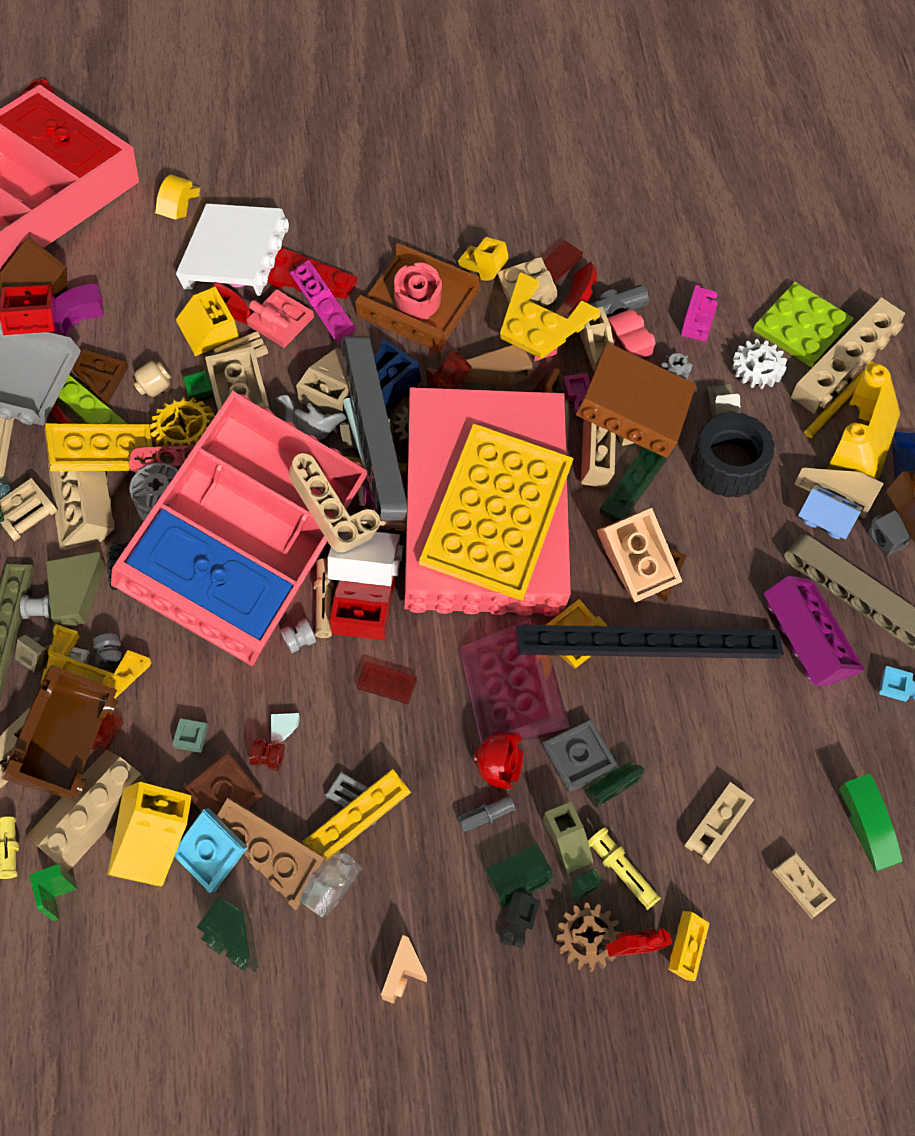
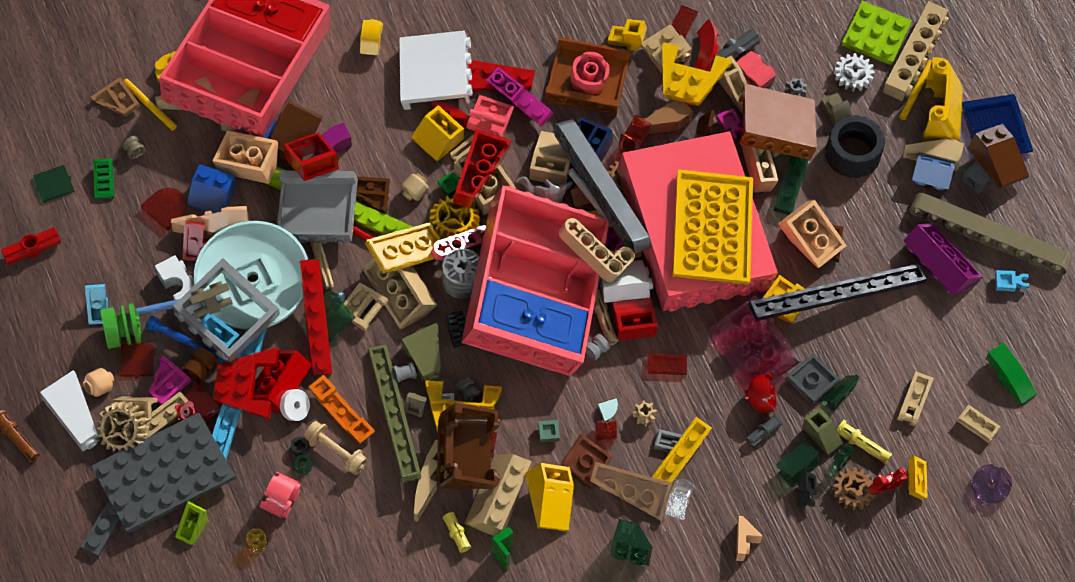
camera: 20 degrees left, 0 degrees up
(209, 850) = (594, 498): medium azure tile -> none
(226, 366) = (481, 163): none -> red wedge
(323, 739) = (639, 413): none -> tan gear
(700, 314) = (799, 43): dark pink hinge -> none
(787, 999) = (994, 474): none -> clear purple plate

